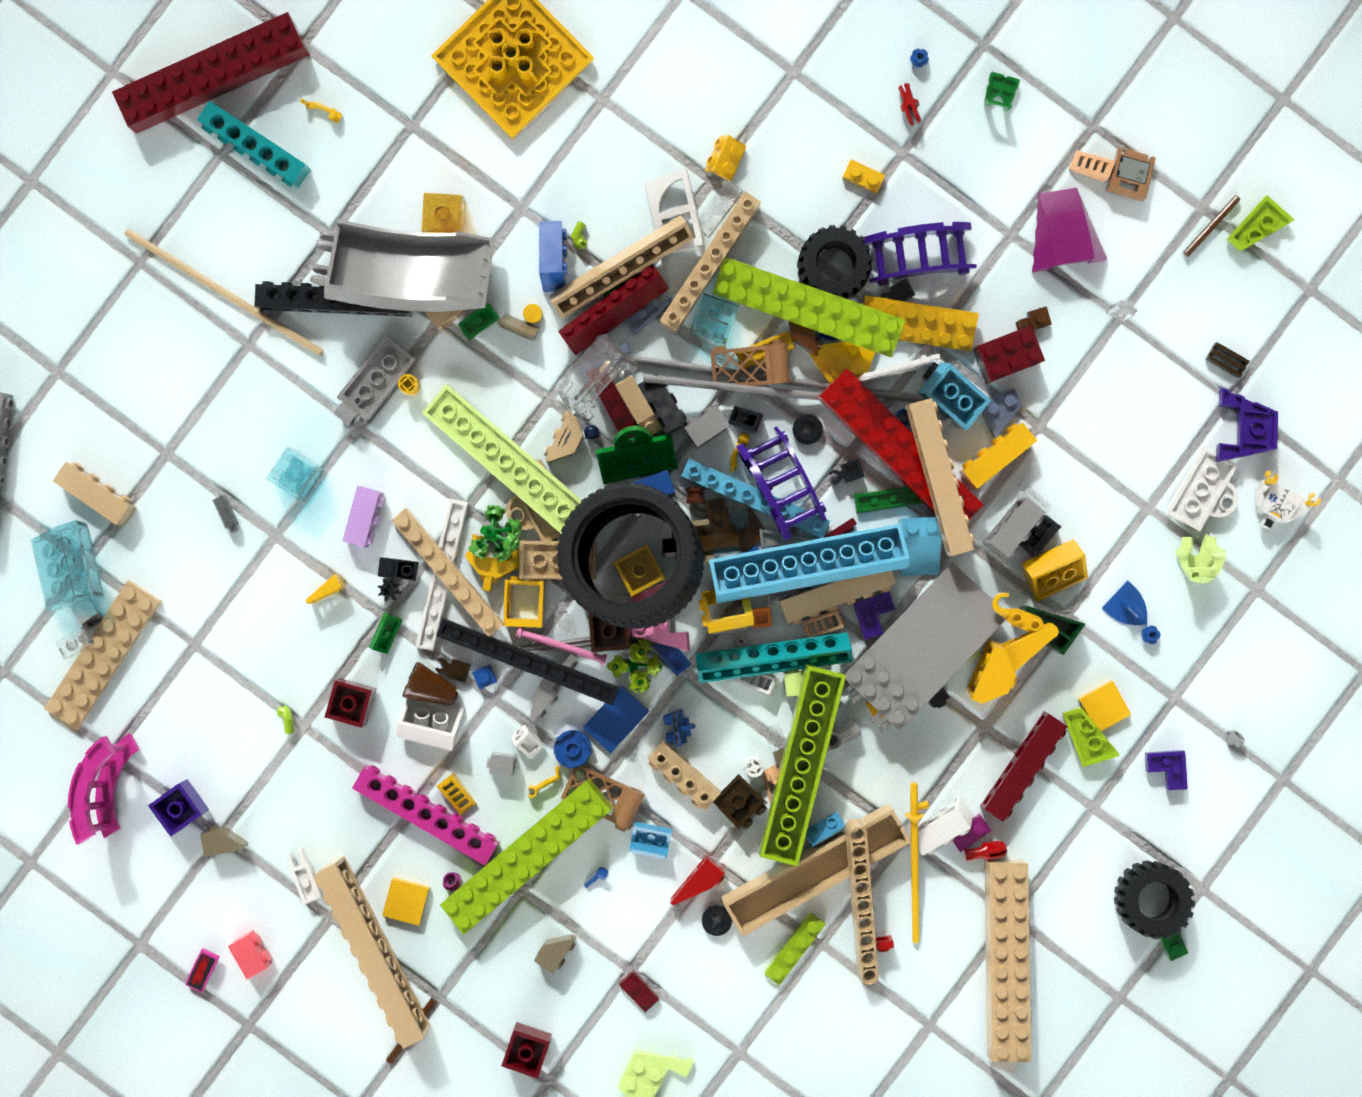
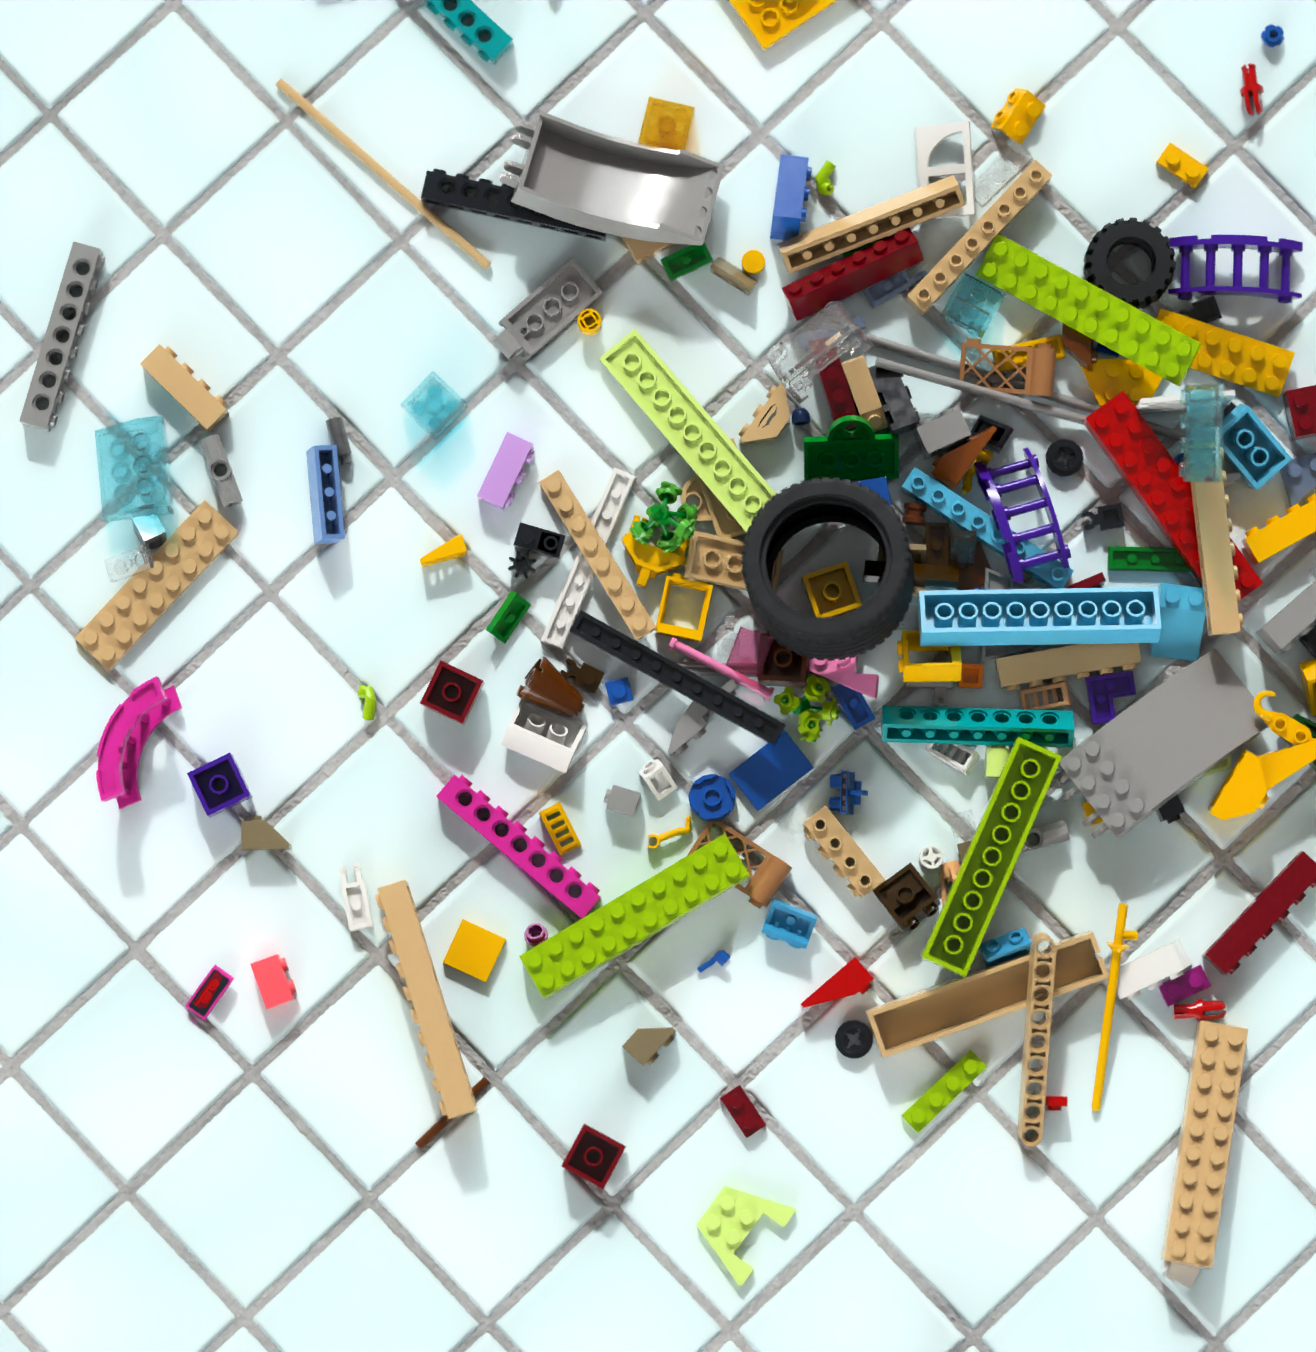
camera: 10 degrees right, 5 degrees down
(130, 544) = (215, 457): none -> light grey piece
(221, 560) = (325, 494): none -> medium blue brick
(581, 630) = (749, 651): none -> clear pink piece
(724, 444) = (957, 460): none -> dark orange slope
(920, 395) = (1202, 433): none -> clear light blue slope

